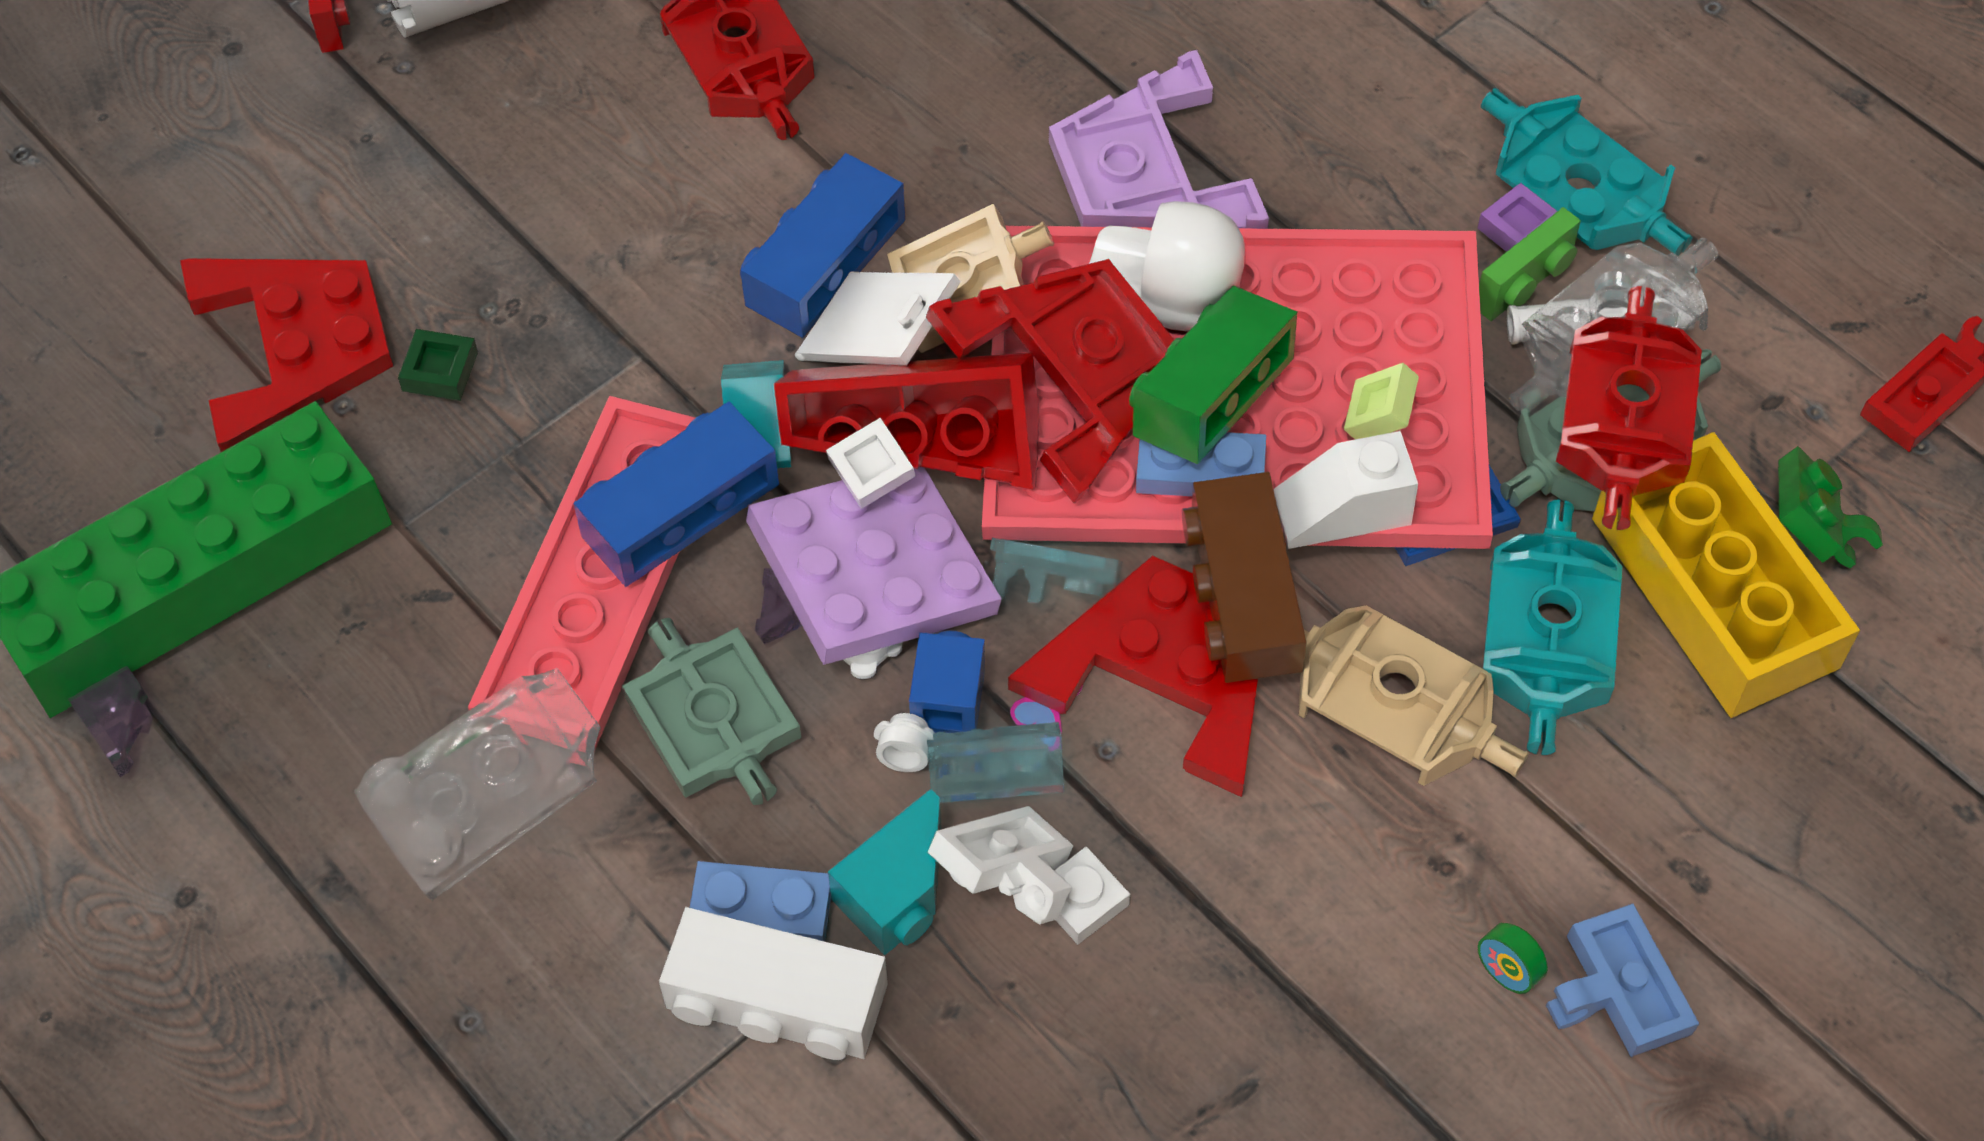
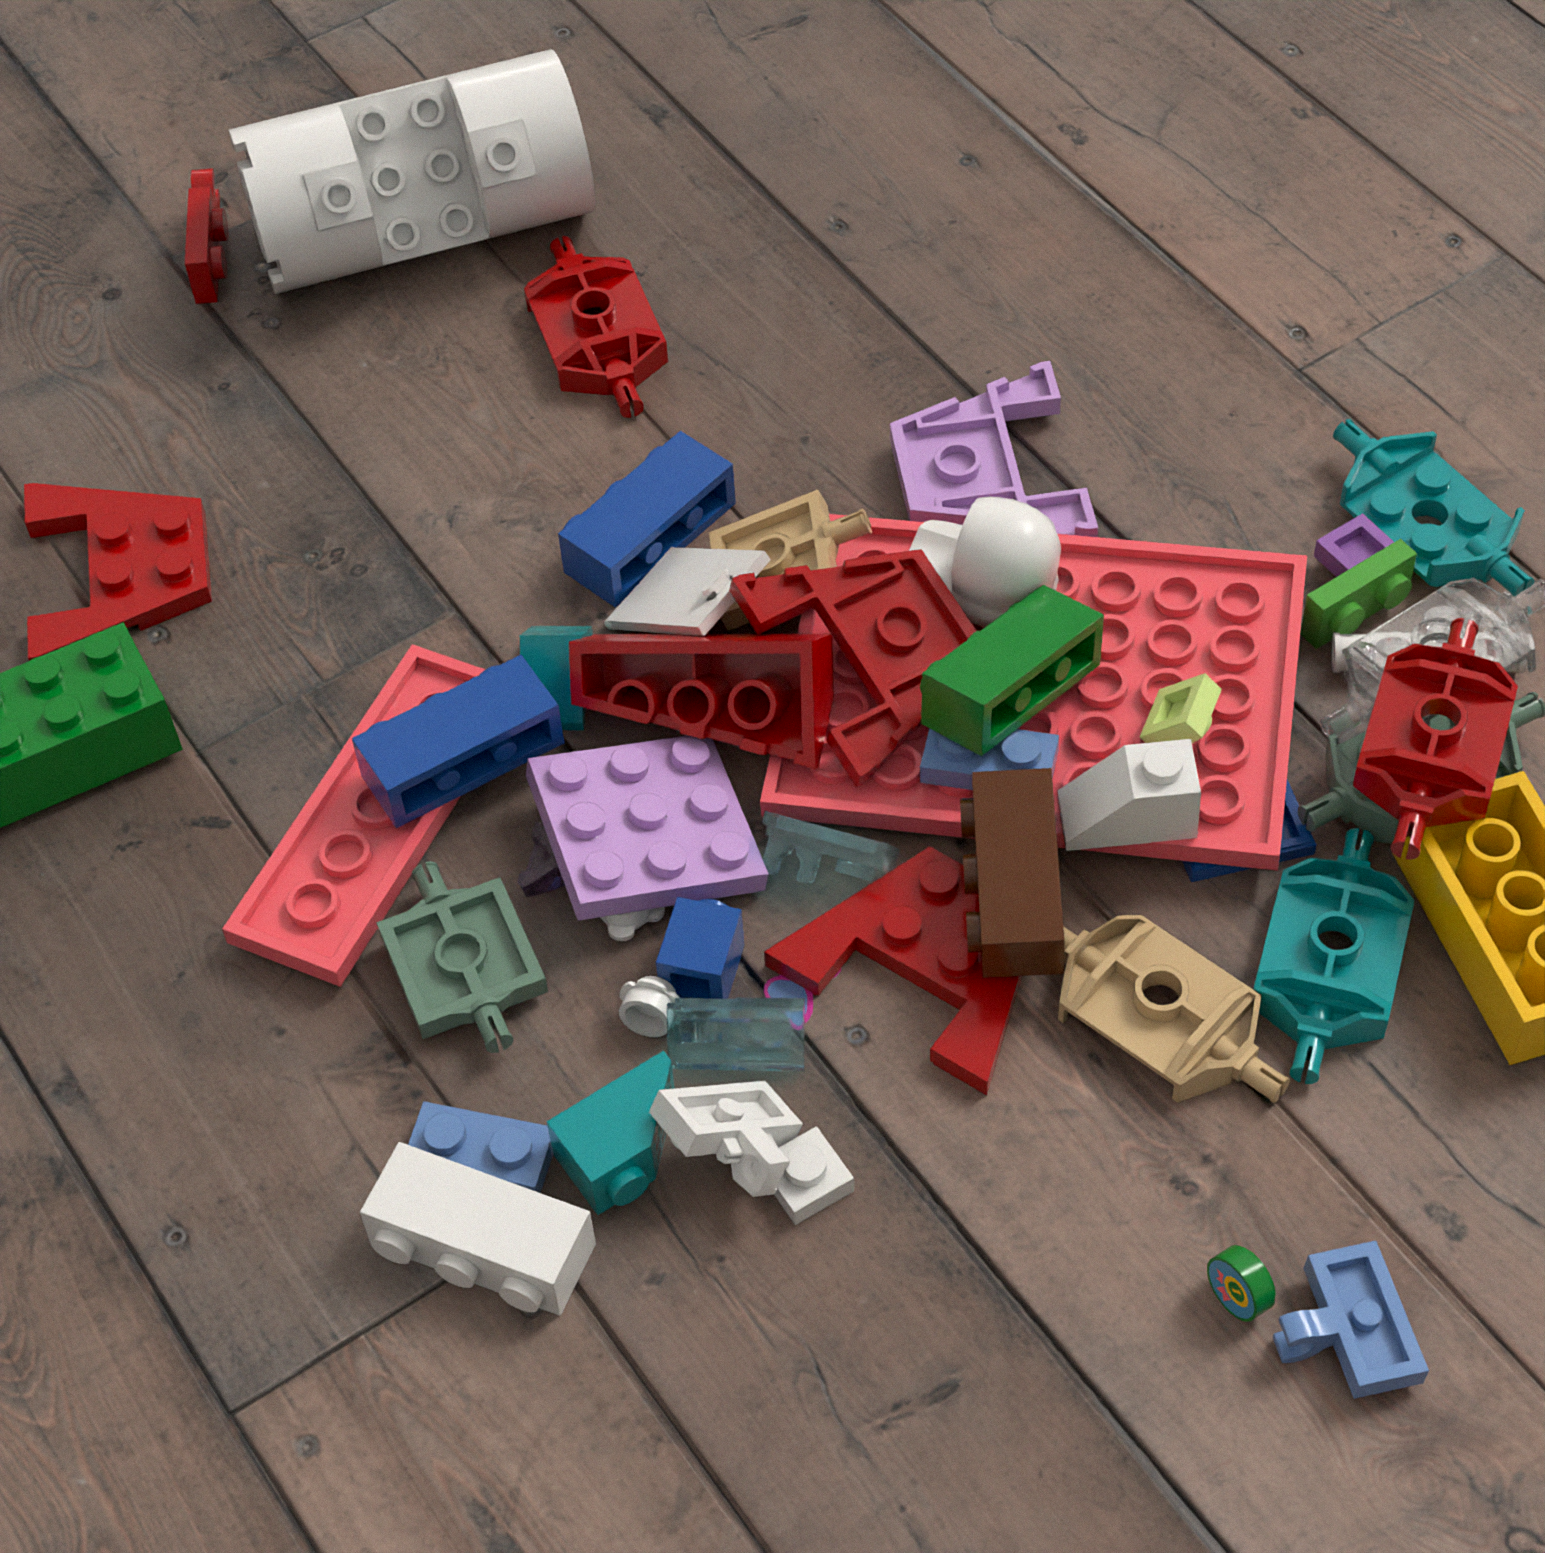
camera: 10 degrees right, 5 degrees down
(438, 364) = (252, 601): dark green plate -> none
(482, 780) = (222, 1001): clear slope -> none
(870, 463) = (653, 727): white plate -> none

